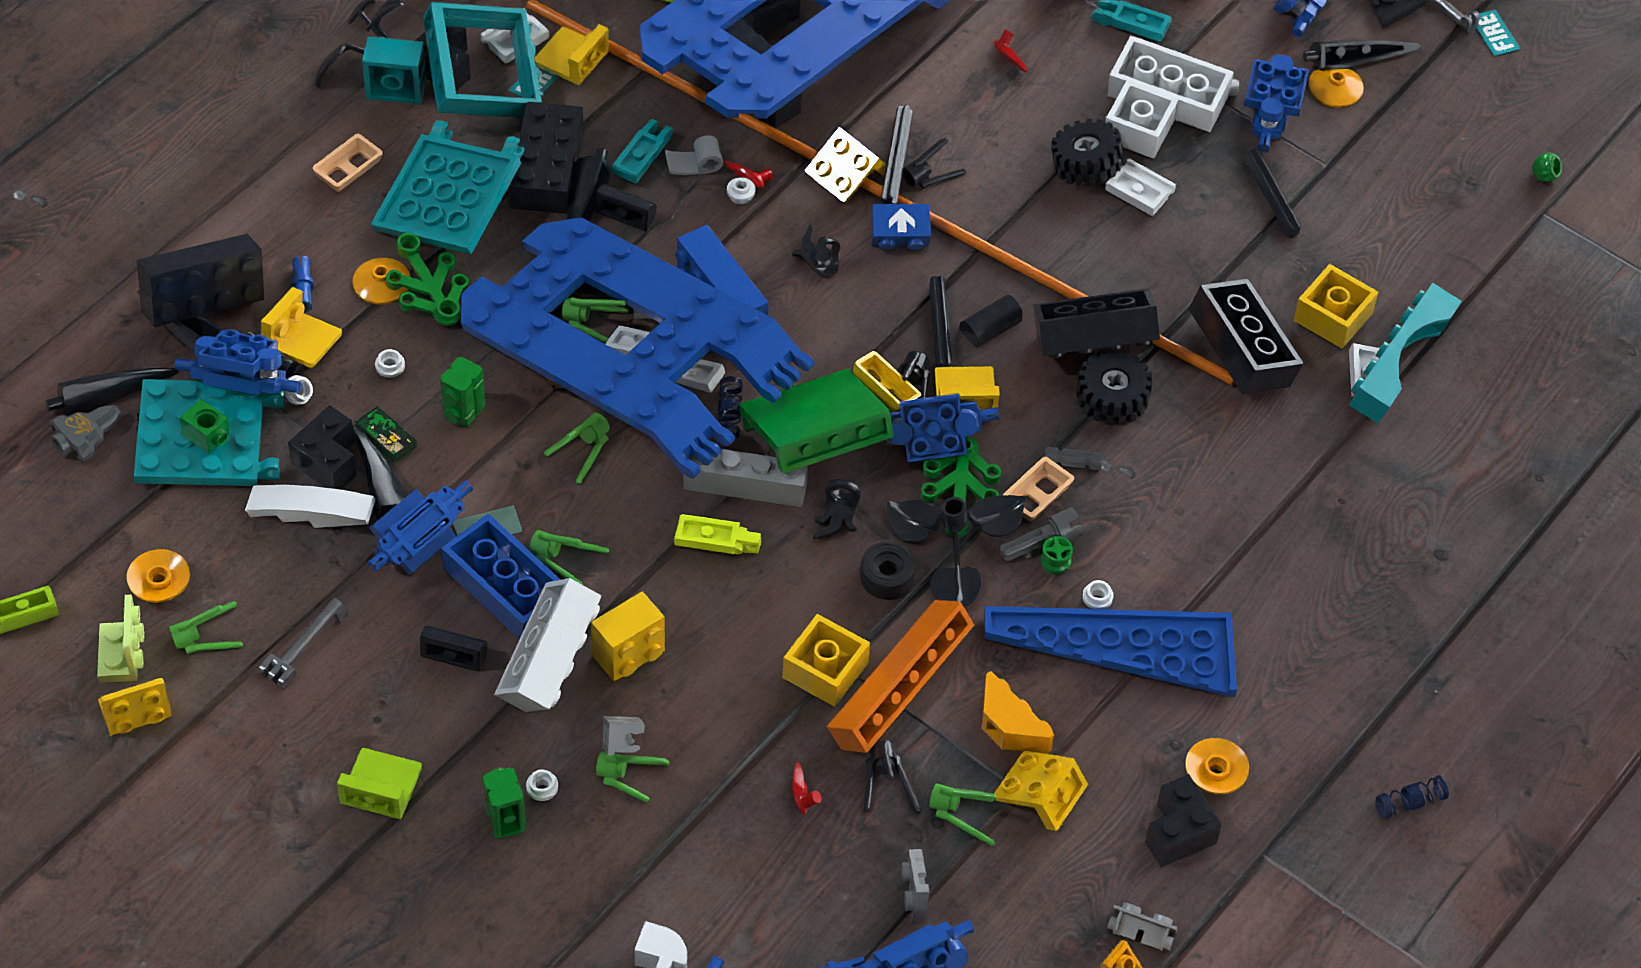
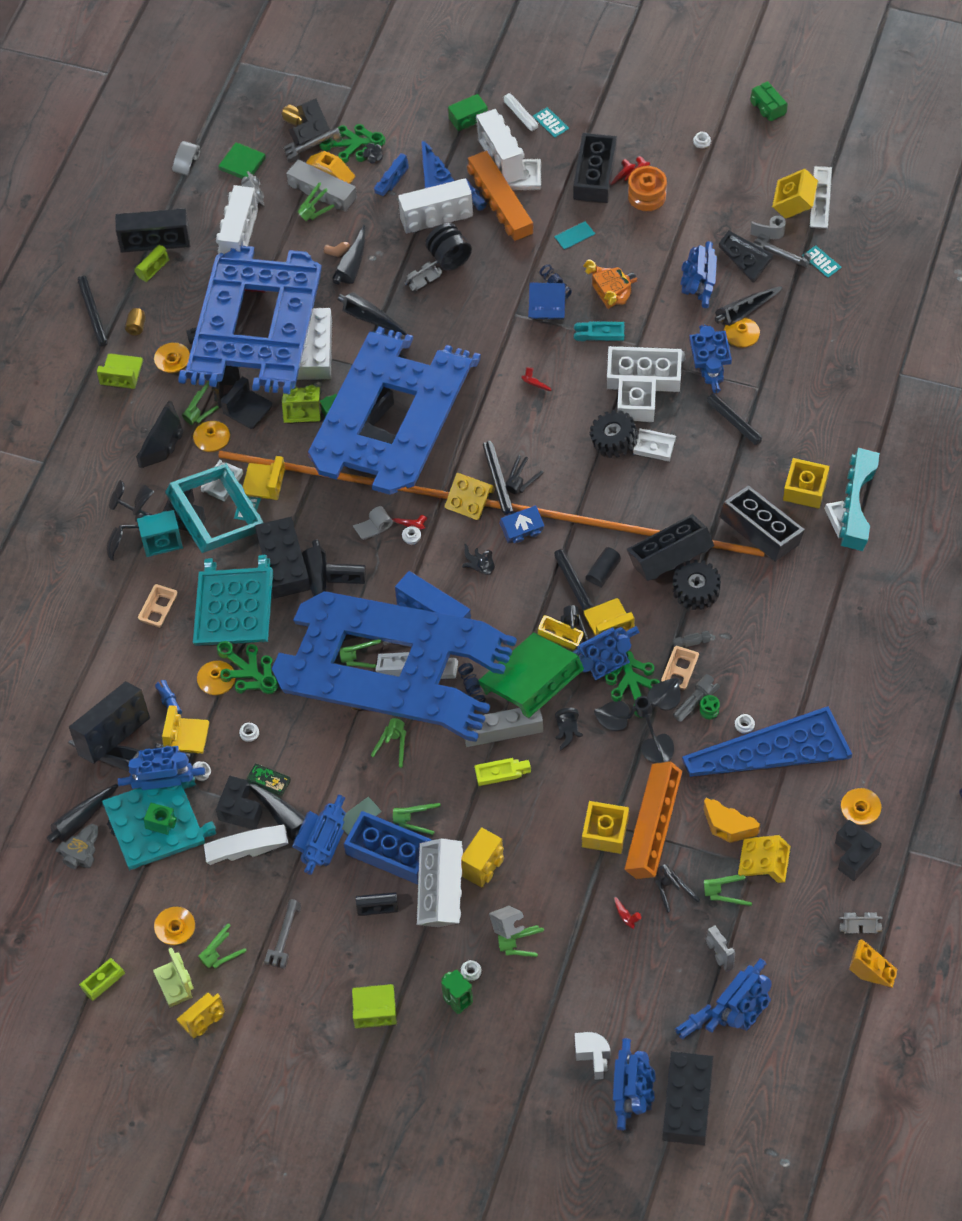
camera: 15 degrees left, 5 degrees up
(462, 392) = (306, 736): green brick -> none
(641, 152) = (338, 532): teal hinge -> none
(891, 555) = (617, 765): black tyre -> none
(1547, 167) = (891, 343): green piece -> none

